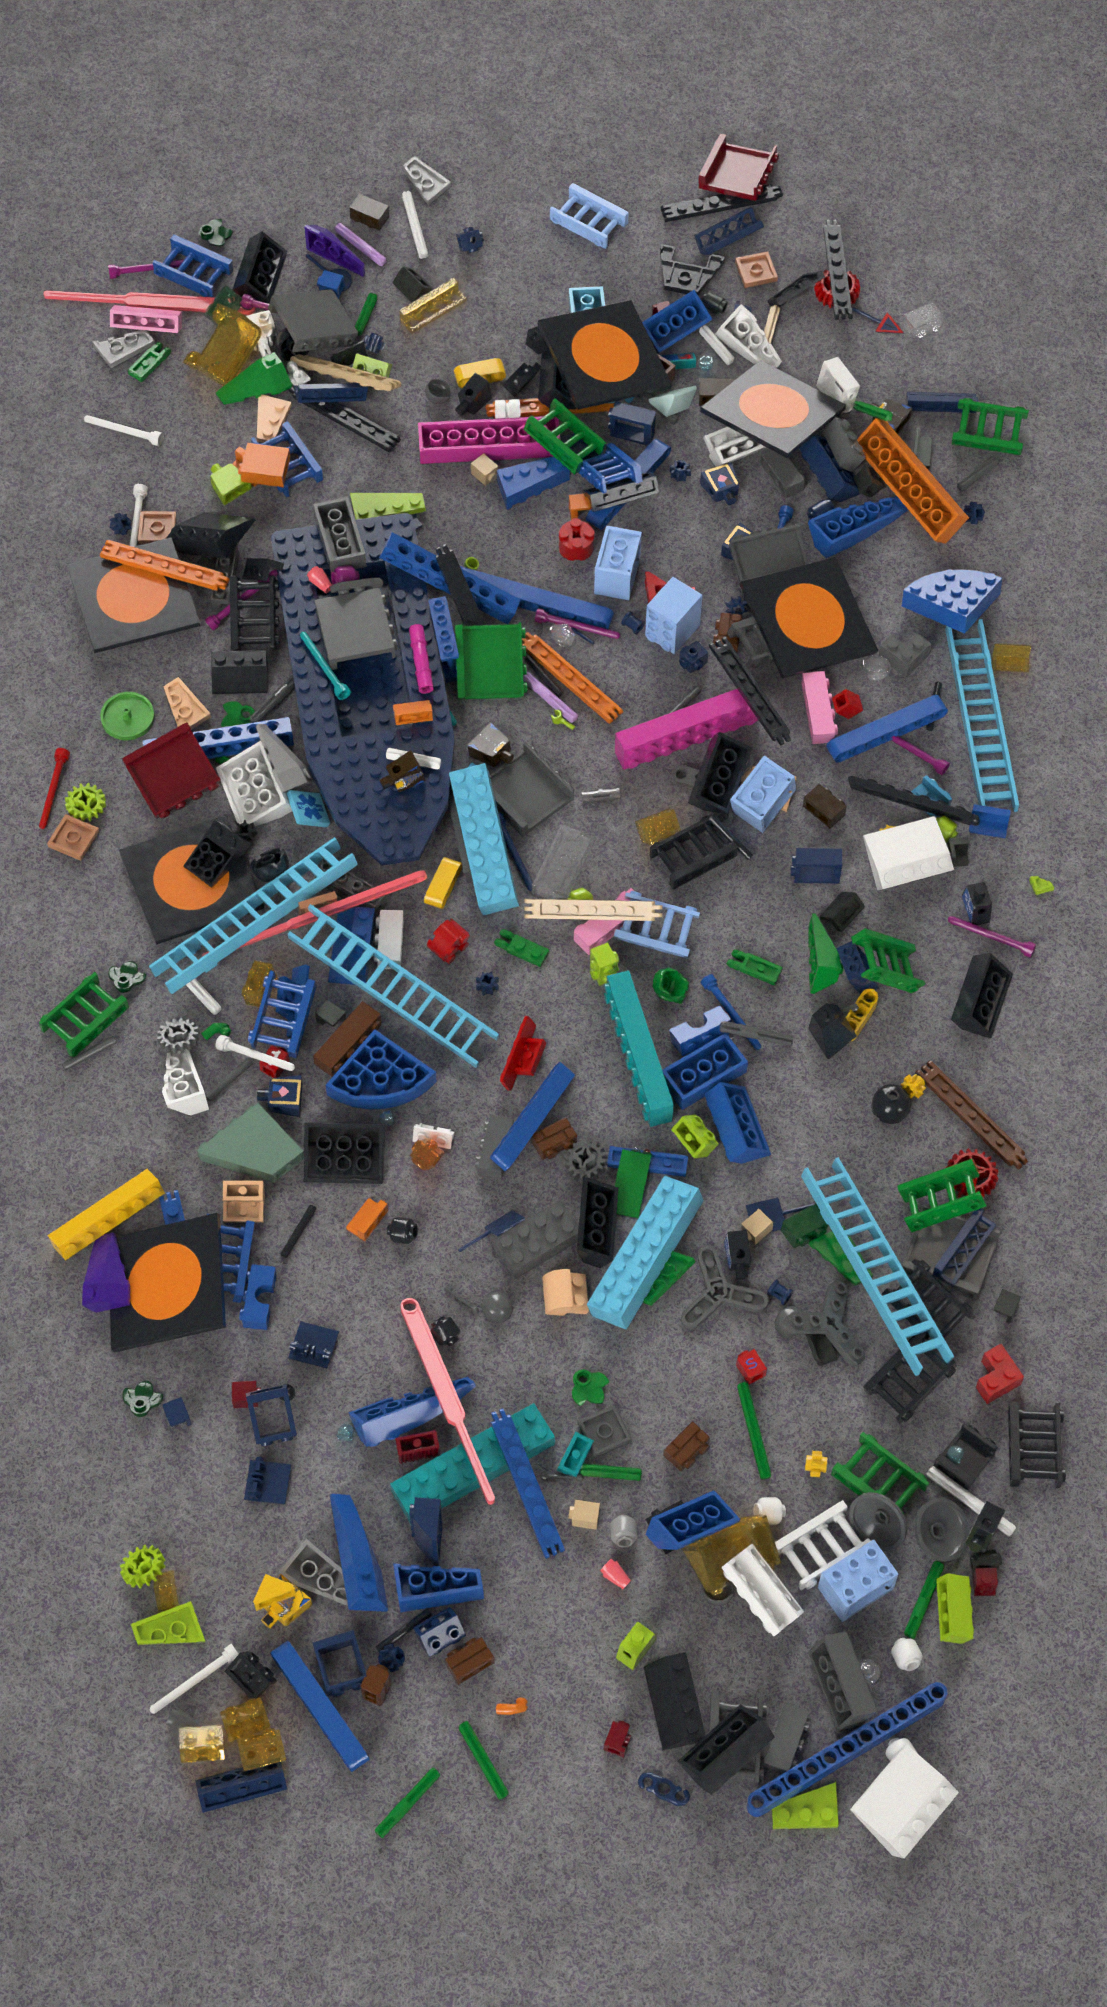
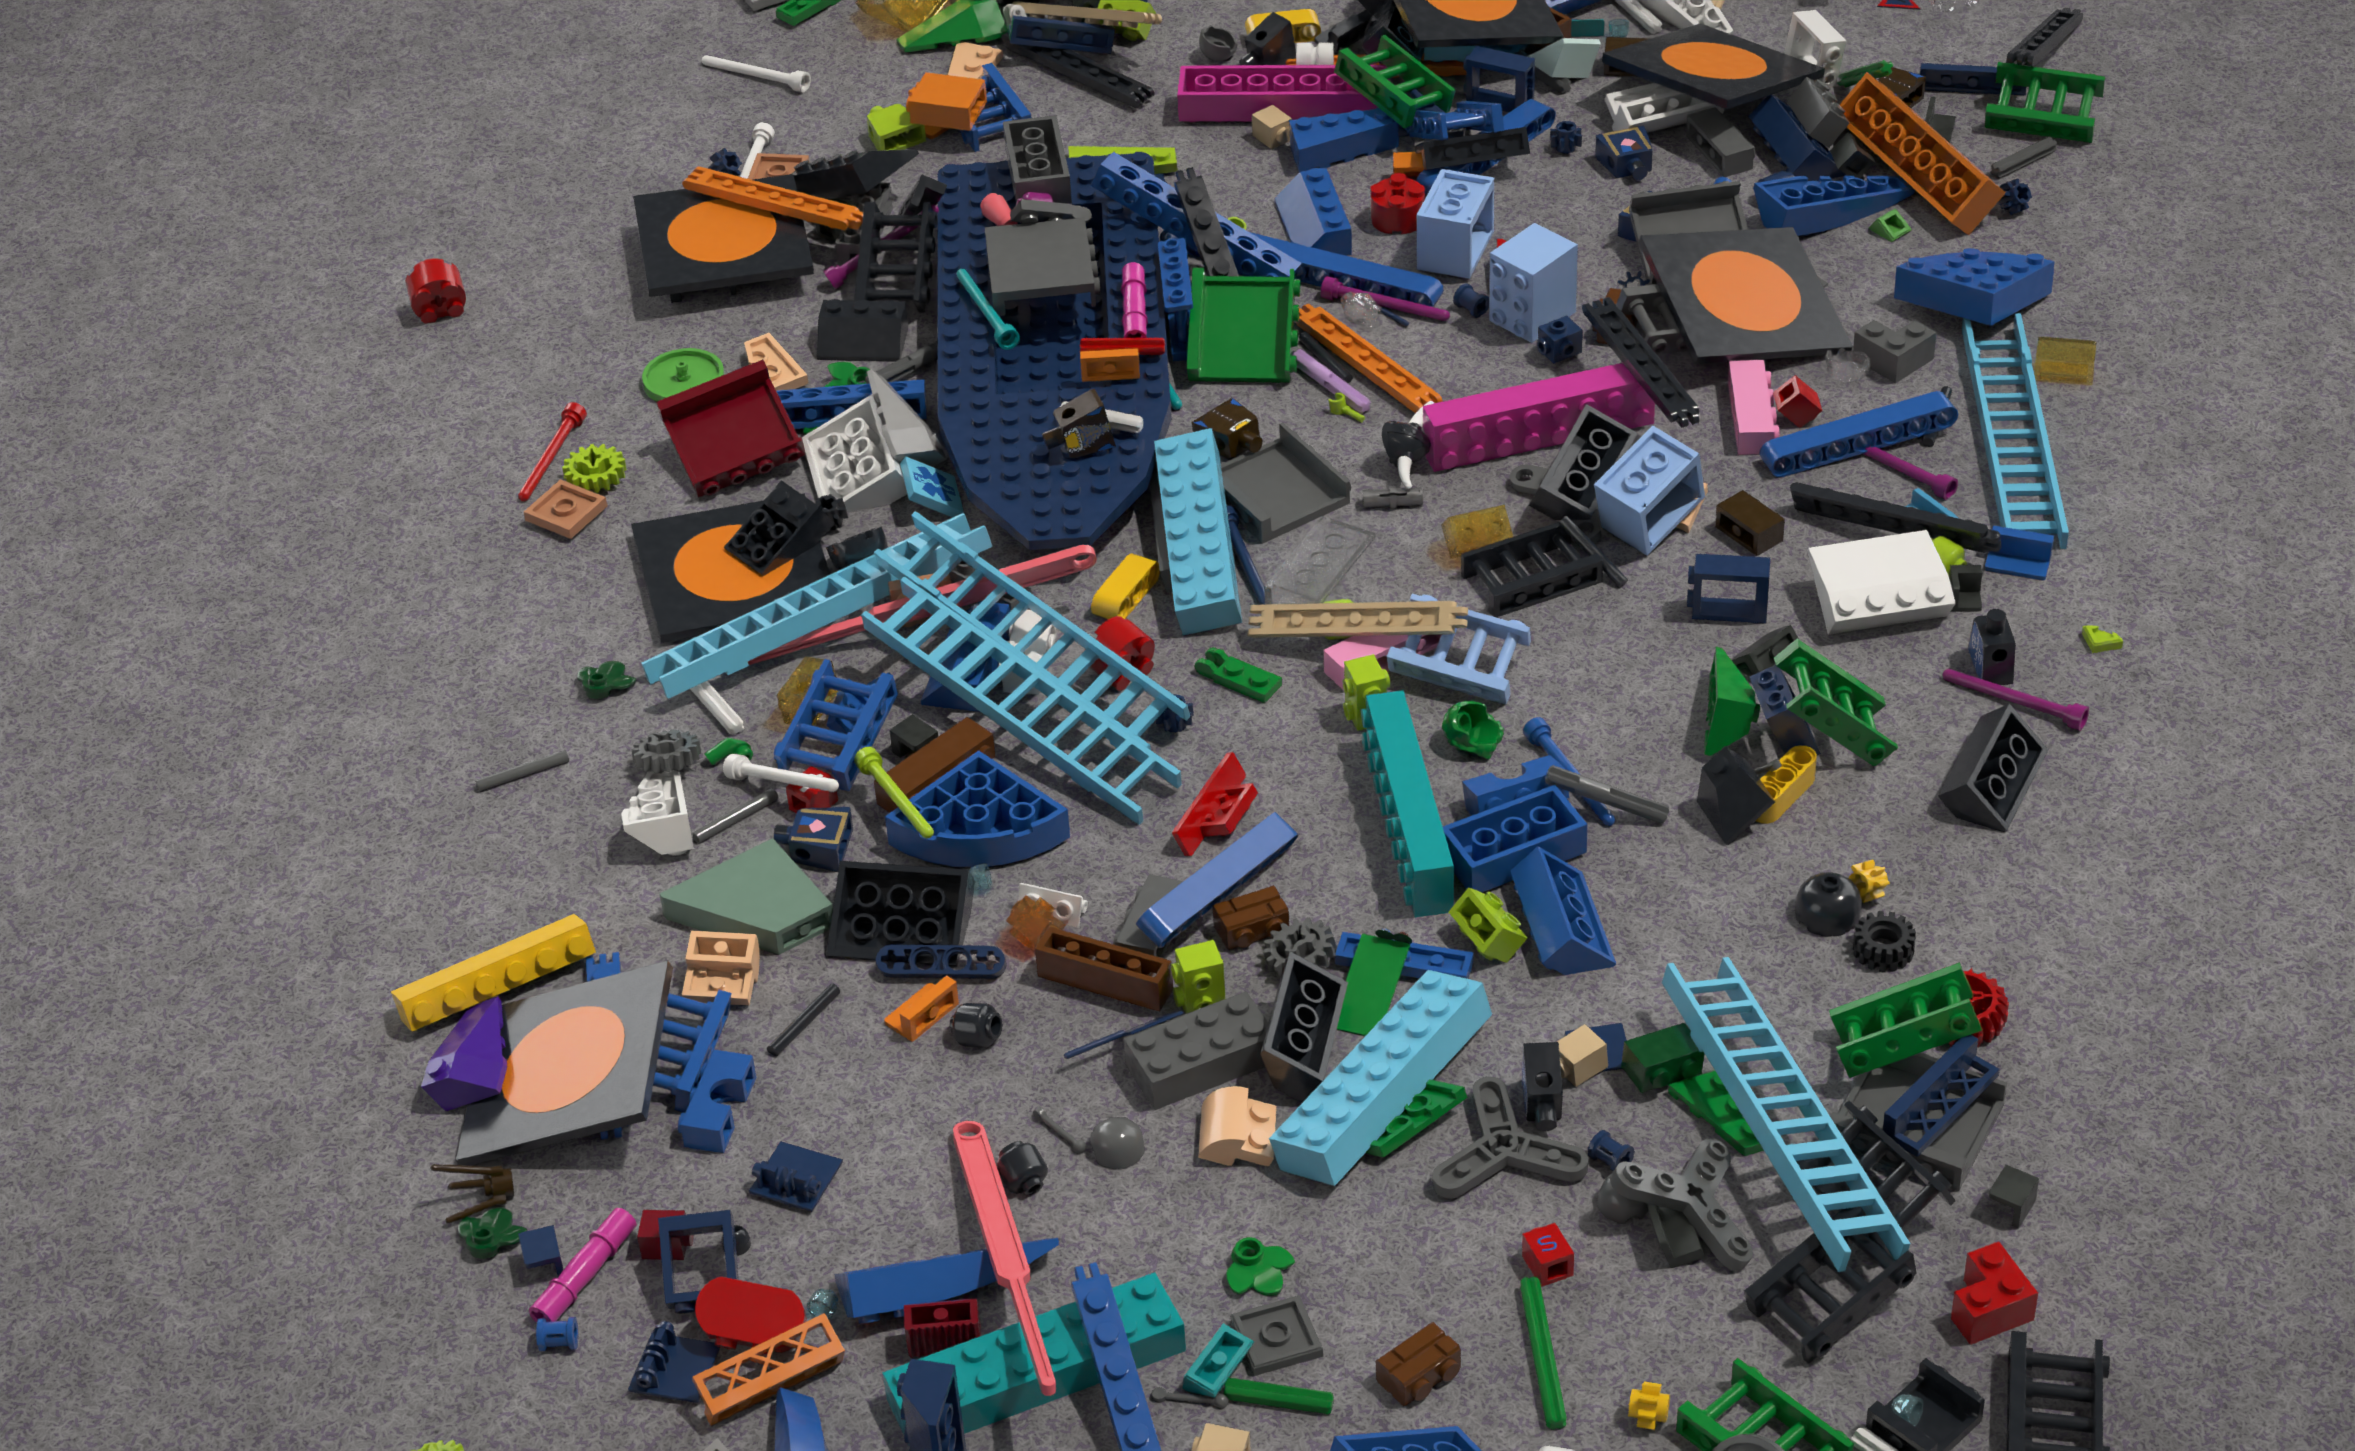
camera: 10 degrees right, 20 degrees down
(88, 1031) = (536, 737): green fence -> none
(139, 1365) = (496, 1183): none -> dark brown plant
(196, 1466) = (557, 1334): none -> blue bush
(202, 1420) = (583, 1266): none -> dark pink piece
(307, 1449) = (747, 1313): none -> red brick
(309, 1043) = (870, 763): none -> lime piece
(327, 1489) = (768, 1383): none -> orange fence
(374, 1187) = (941, 957): none -> dark blue beam
(403, 925) = (1072, 633): none -> medium azure ladder
(418, 695) = (1145, 346): none -> red axle
(473, 1185) = (1104, 968): none -> reddish brown brick
(522, 551) = (1314, 213): none -> blue slope
(531, 1191) = (1198, 976): none -> lime brick
(606, 755) = (1406, 444): none -> black helmet
(755, 967) = (1615, 716): green hinge -> none
(895, 540) = (1890, 226): none -> bright green slope
(925, 1139) = (1884, 954): none -> black tyre
(972, 1115) = (1970, 930): reddish brown hinge -> none
(988, 368) = (2045, 37): none -> black hinge

